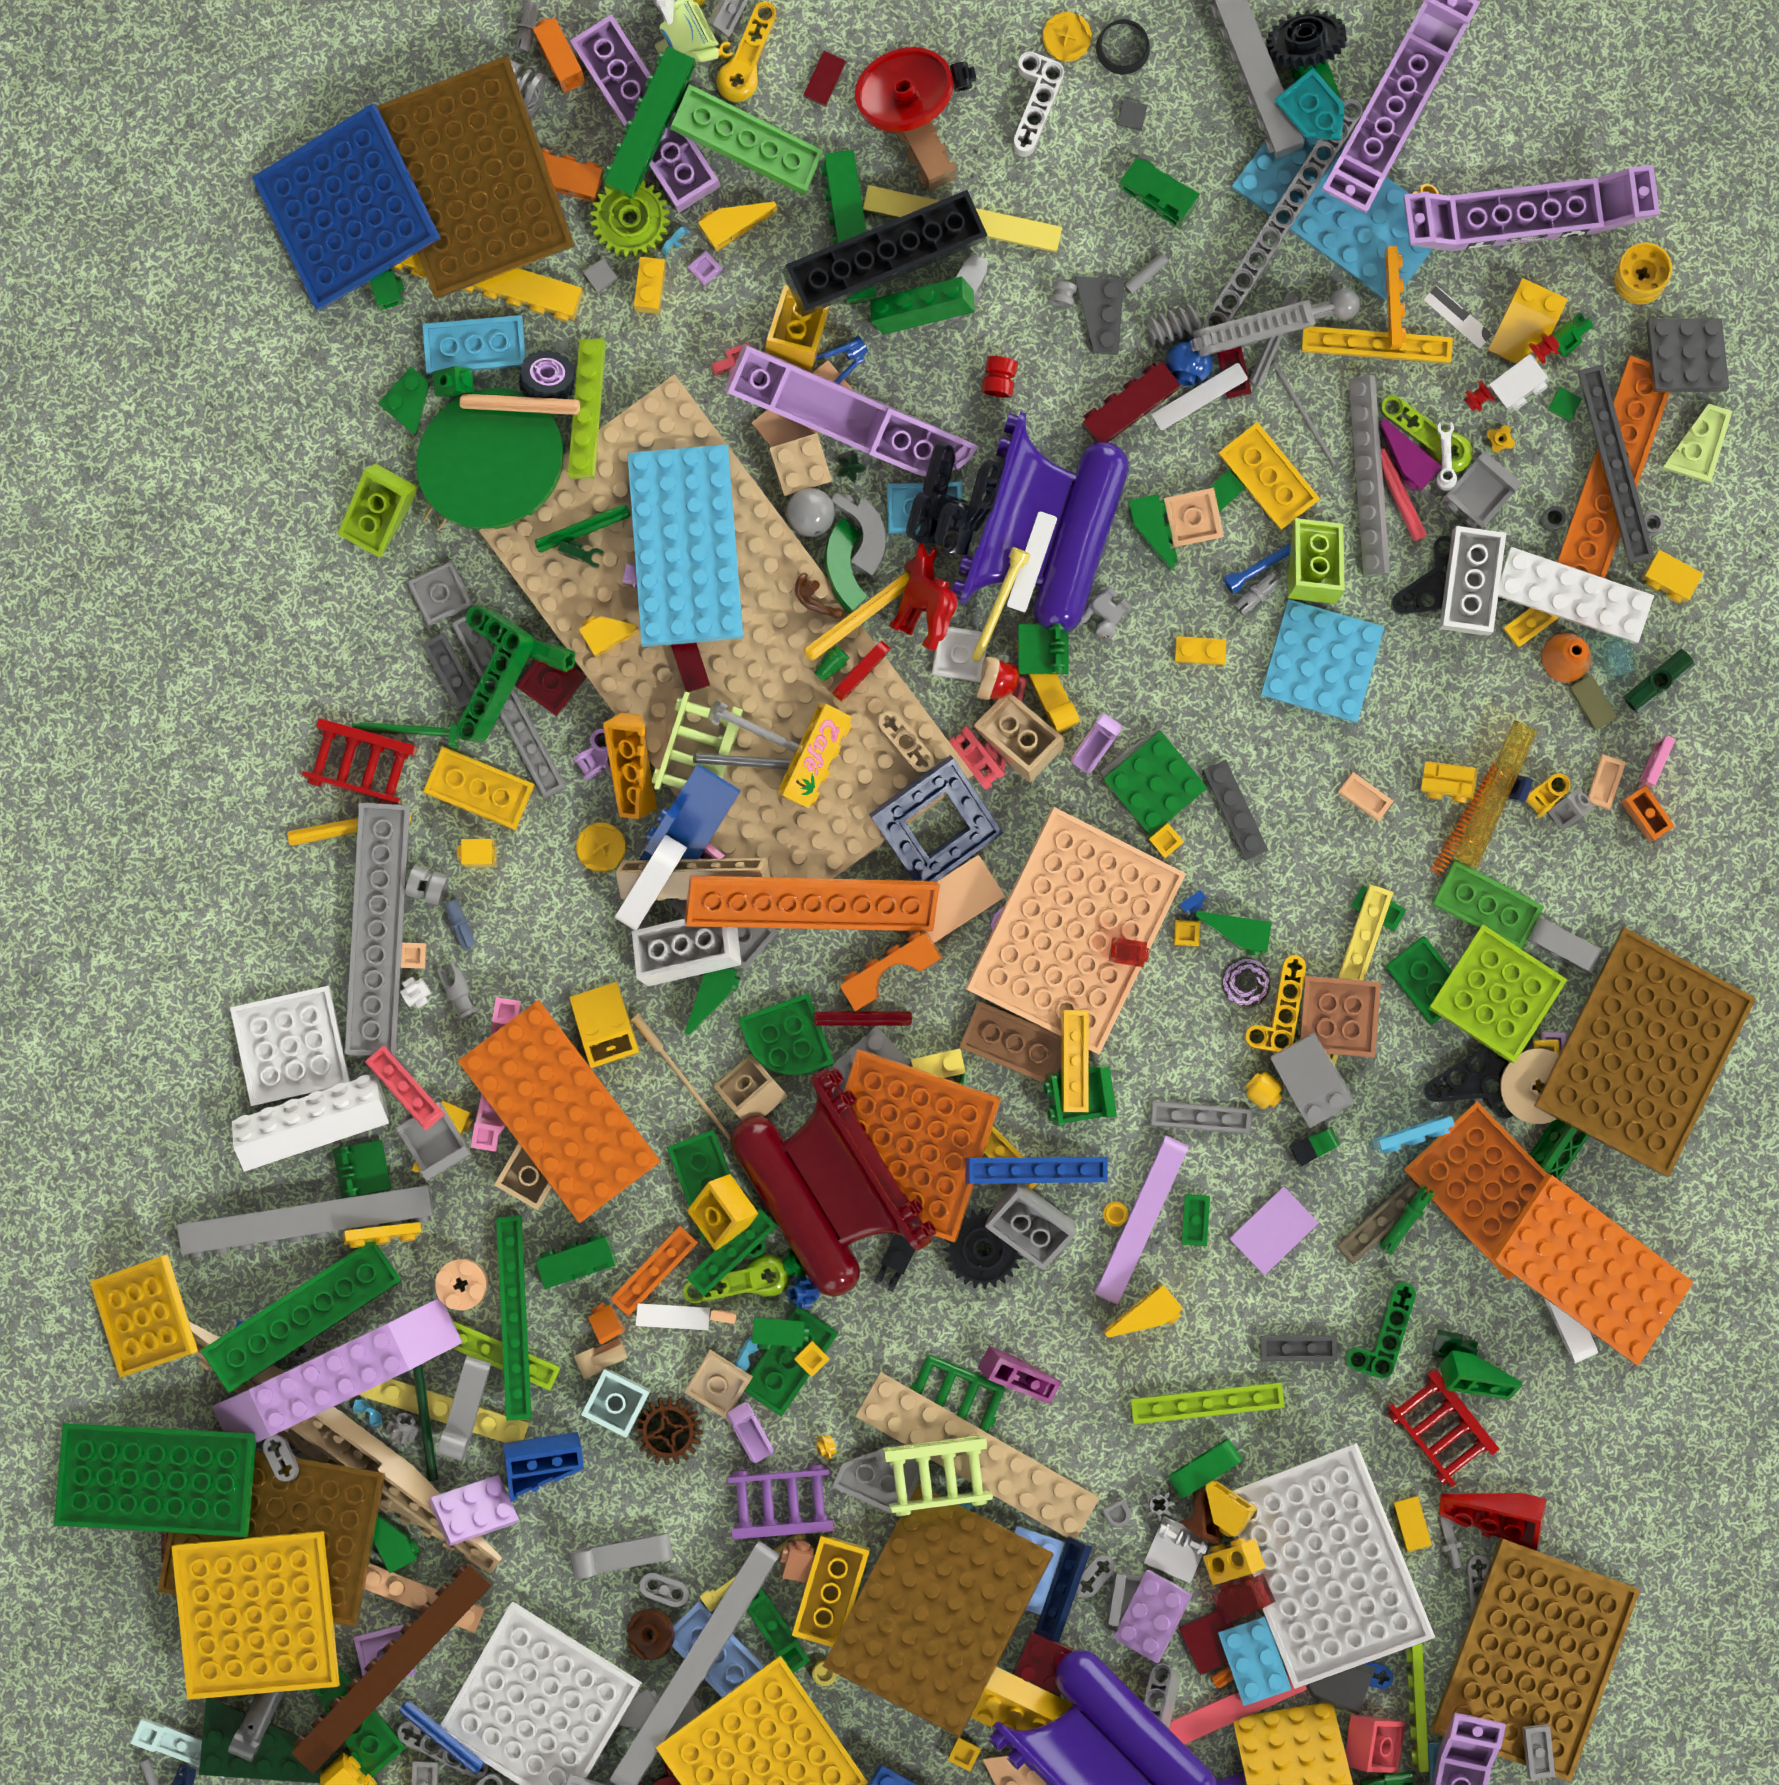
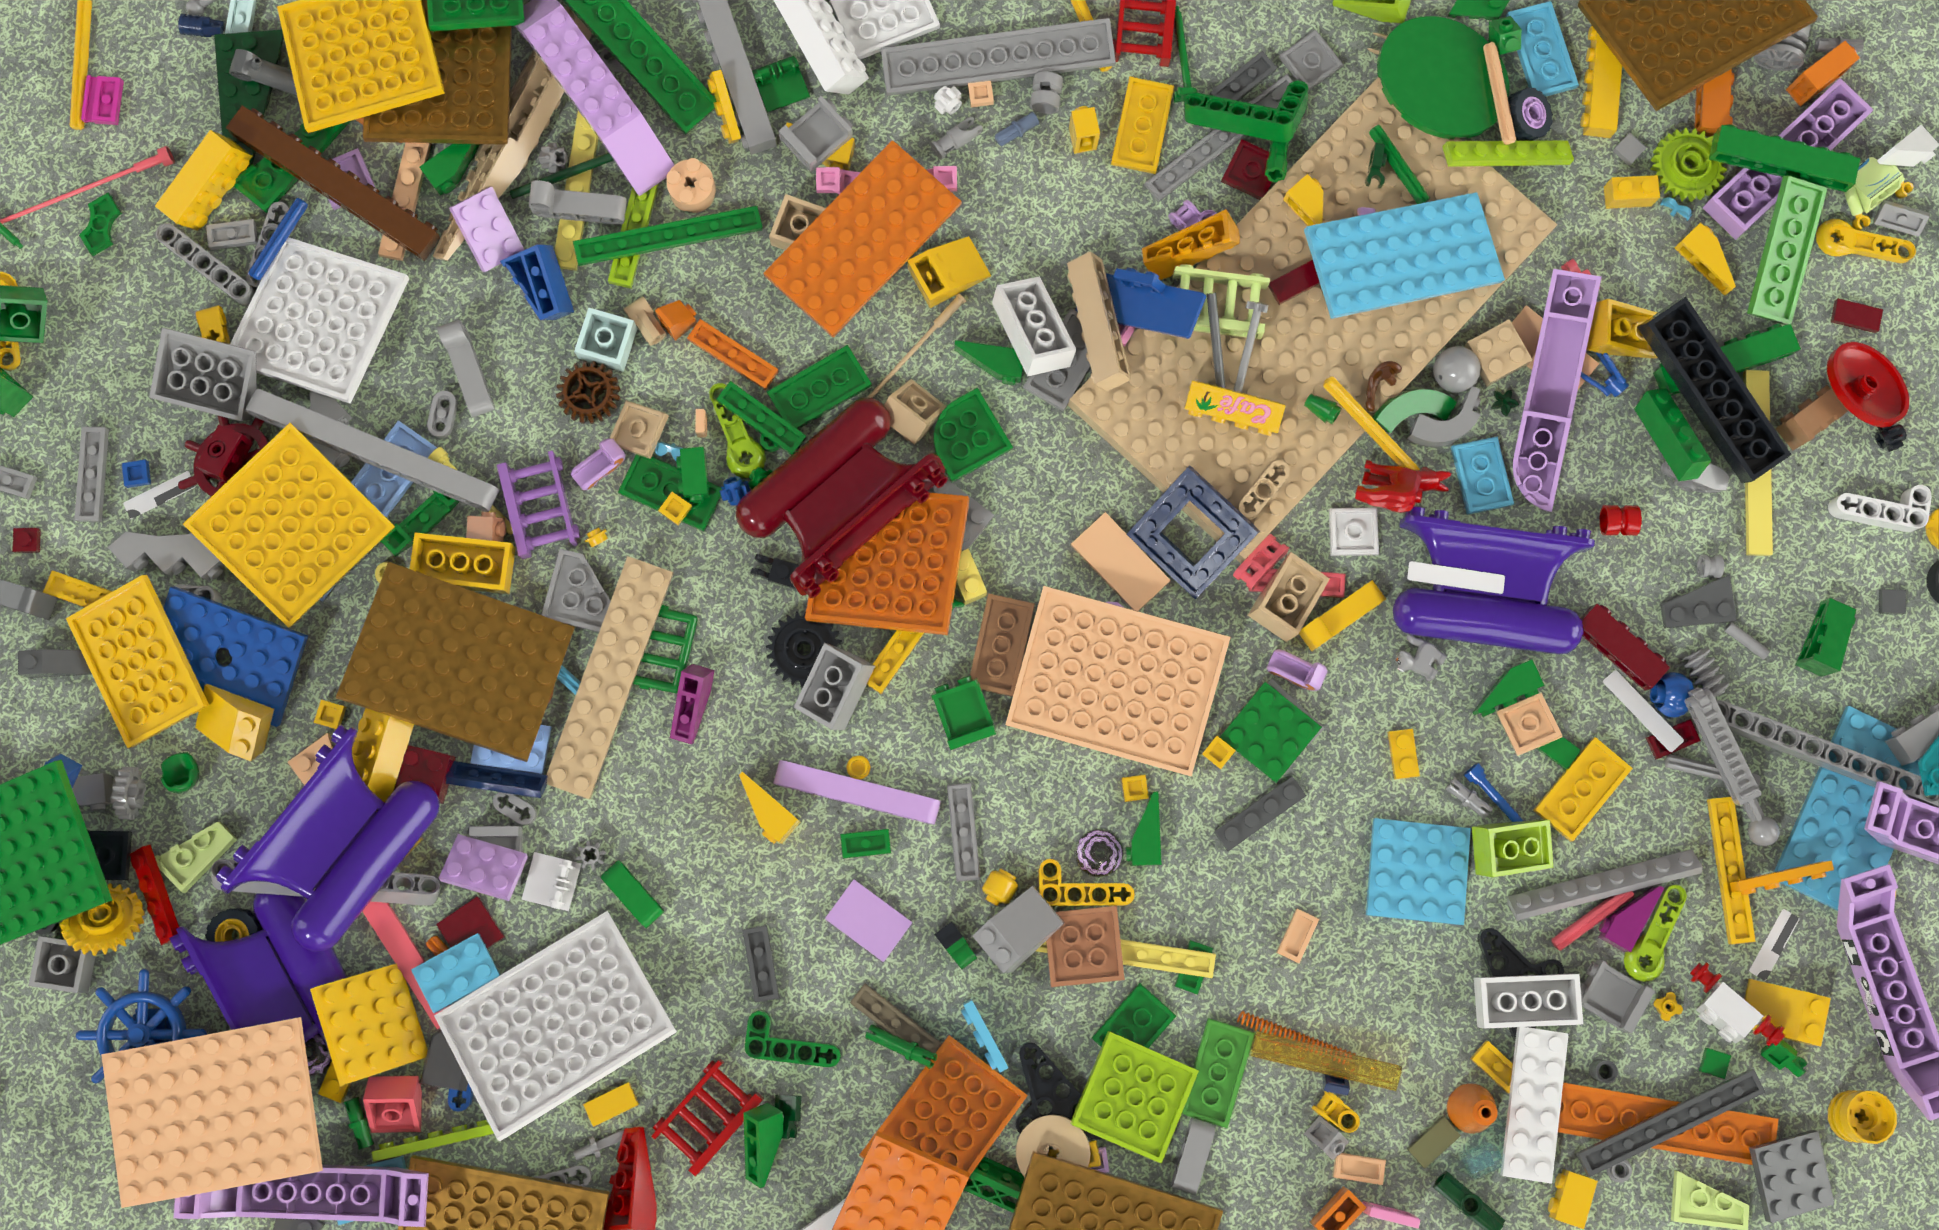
camera: 75 degrees right, 5 degrees down
(286, 1455) = (507, 51): light grey beam -> none
(375, 1416) = (568, 122): medium azure piece -> none
(404, 1088) = (859, 99): coral tile -> none
(576, 1261) = (729, 283): green wedge -> none
(601, 847) = (1111, 240): yellow tile -> none
(640, 1637) = (398, 408): reddish brown plate -> none
(650, 882) = (1088, 280): white beam -> none
(672, 1316) = (693, 378): white sticker -> none
(704, 268) = (1657, 240): lavender tile -> none
(722, 1211) = (797, 401): yellow slope -> none
(811, 903) = (1096, 427): orange plate -> none
(859, 673) = (1321, 436): red beam -> none
(862, 1018) = (998, 500): dark red axle -> none
(863, 987) = (1028, 496): orange arch -> none
(946, 518) = (1477, 493): black piece -> none
(947, 1450) = (608, 644): yellowish green fence -> none
(997, 679) = (1338, 565): piece -> none
(1017, 560) = (1455, 562): light yellow piece -> none
(1036, 1170) = (885, 681): blue plate -> none
(1043, 649) = (1375, 603): green hinge -> none
(1074, 1060) = (994, 700): yellow plate -> none
(1117, 1513) = (577, 819): light grey tile -> none
(1128, 952) = (1107, 733): clear red brick -> none
(1193, 903) = (1165, 788): blue plate -> none
(1202, 1522) = (585, 902): copper slope -> none
(1207, 1403) = (694, 885): lime plate -> none
(1228, 1509) = (595, 921): yellow slope -> none
(1233, 1561) = (547, 936): yellow brick -> none
(1243, 1598) = (513, 951): clear red brick -> none
(1304, 414) = (1648, 813): light grey piece -> none
(1445, 438) = (1615, 963): white brick -> none
(1449, 781) = (1330, 1013): yellow brick -> none

